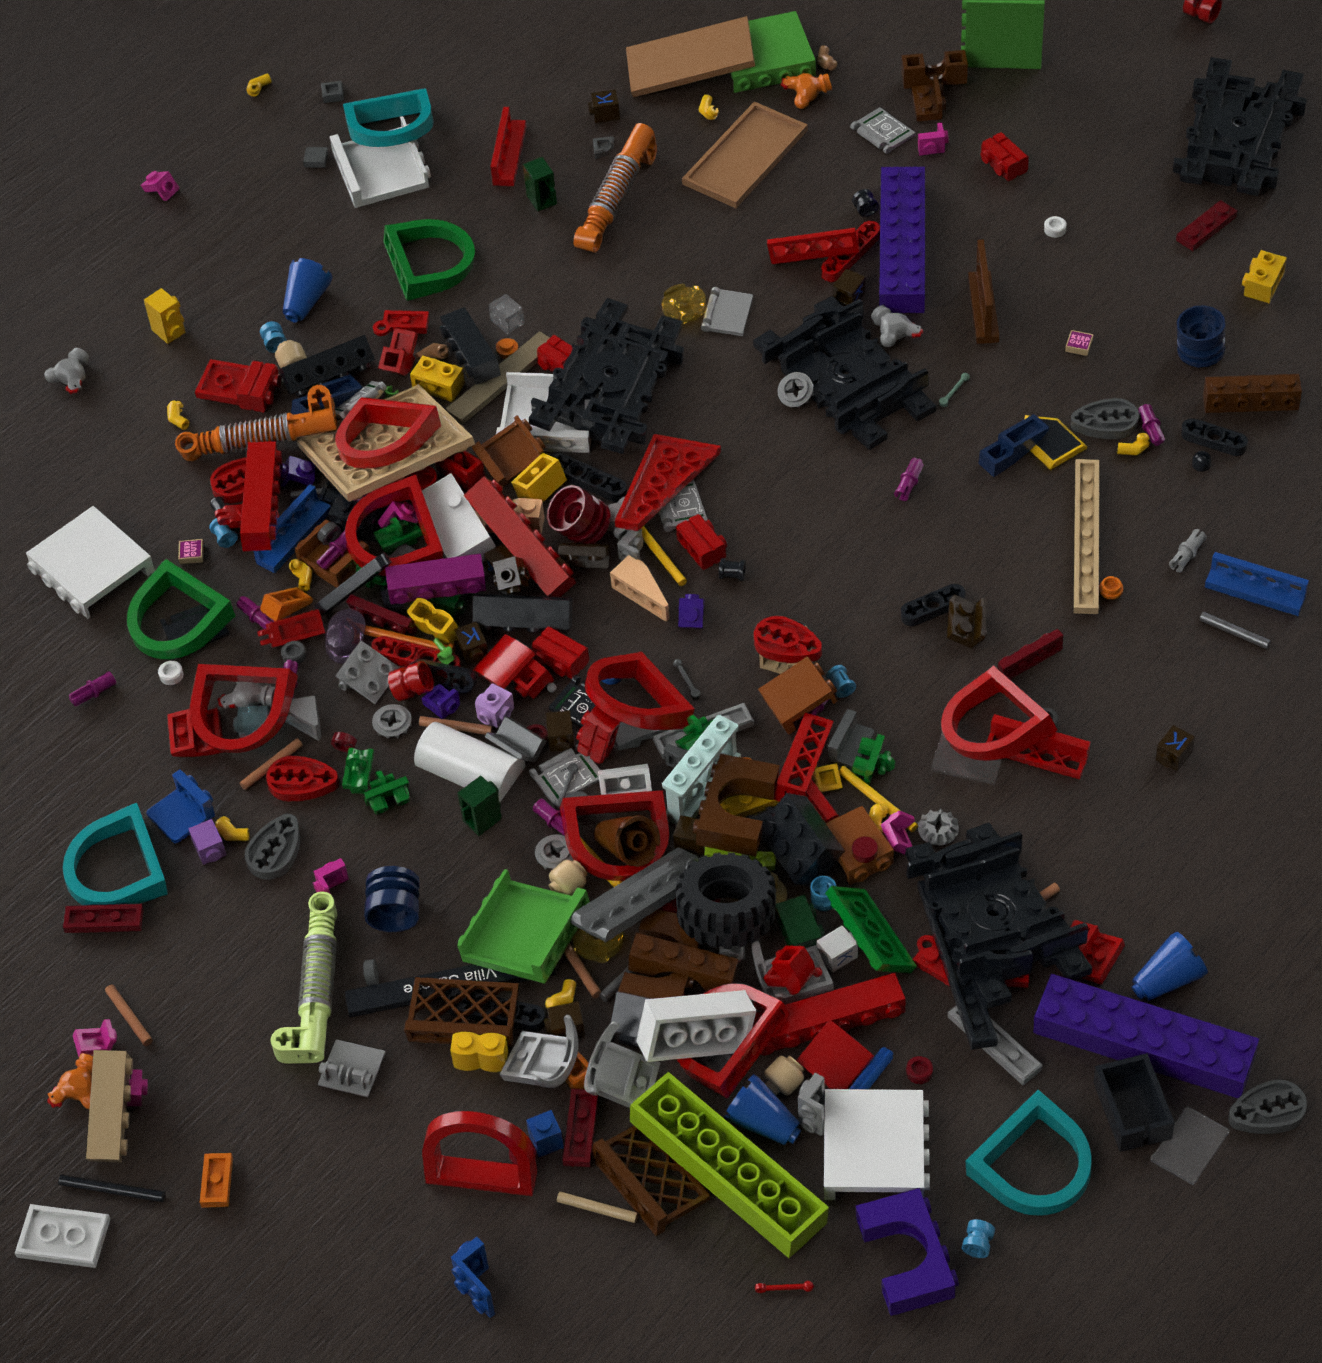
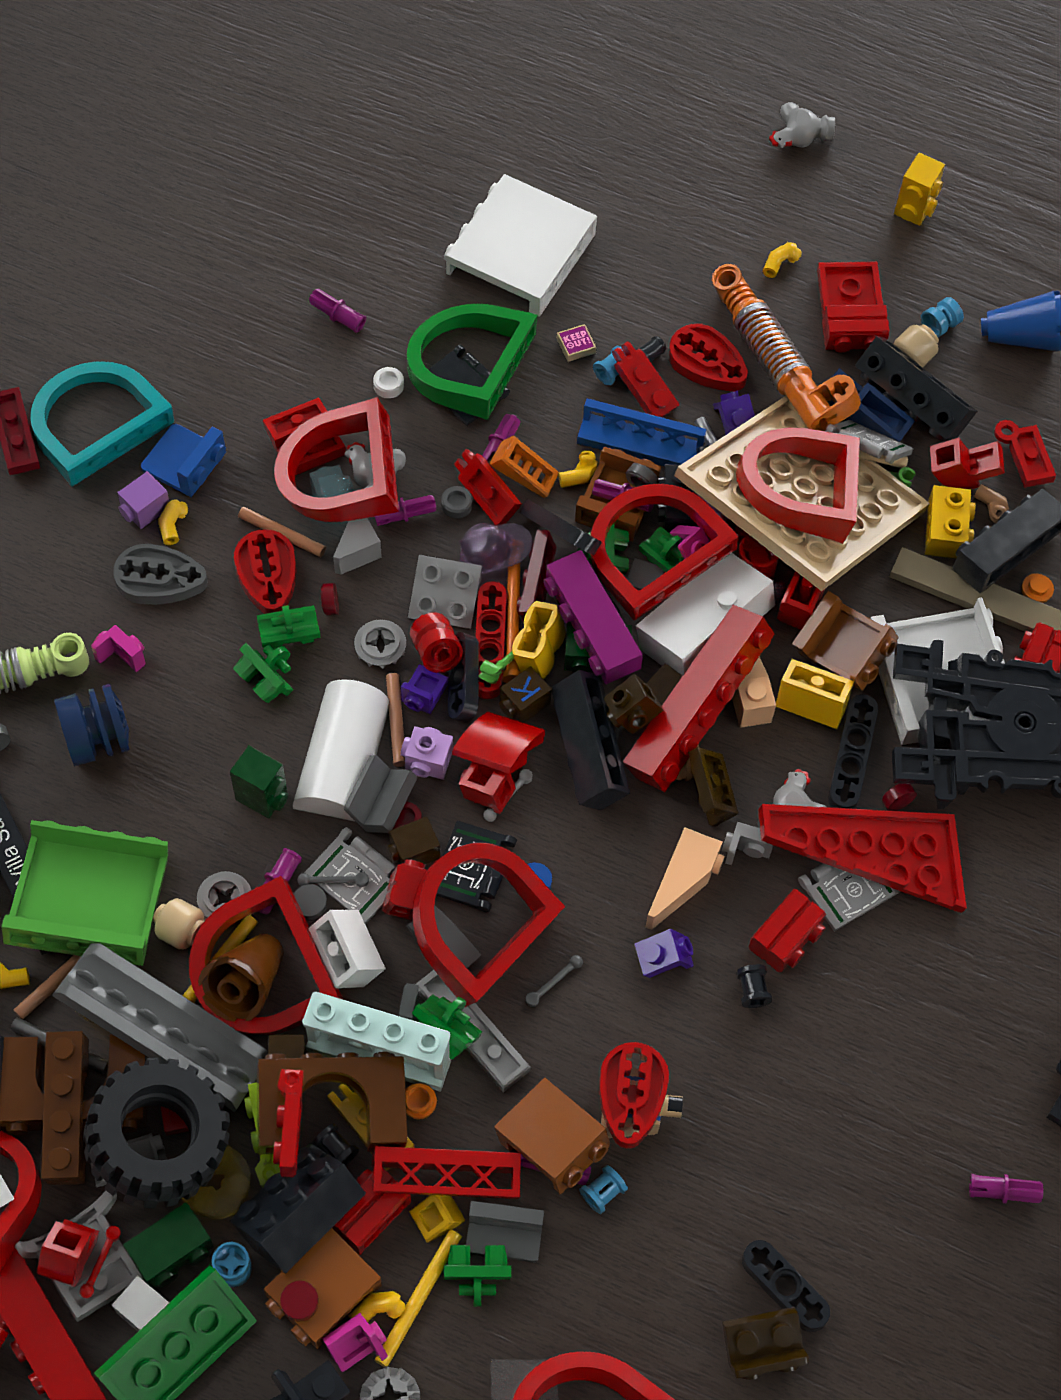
camera: 65 degrees right, 10 degrees up
(260, 496) = (661, 378): red brick -> none
(560, 653) = (541, 807): red brick -> none
(578, 515) = (762, 758): dark red wheel -> none
(629, 459) = (899, 797): none -> dark red tile
(663, 558) = (750, 890): yellow bar -> none
(750, 813) = (289, 1118): none -> red hinge

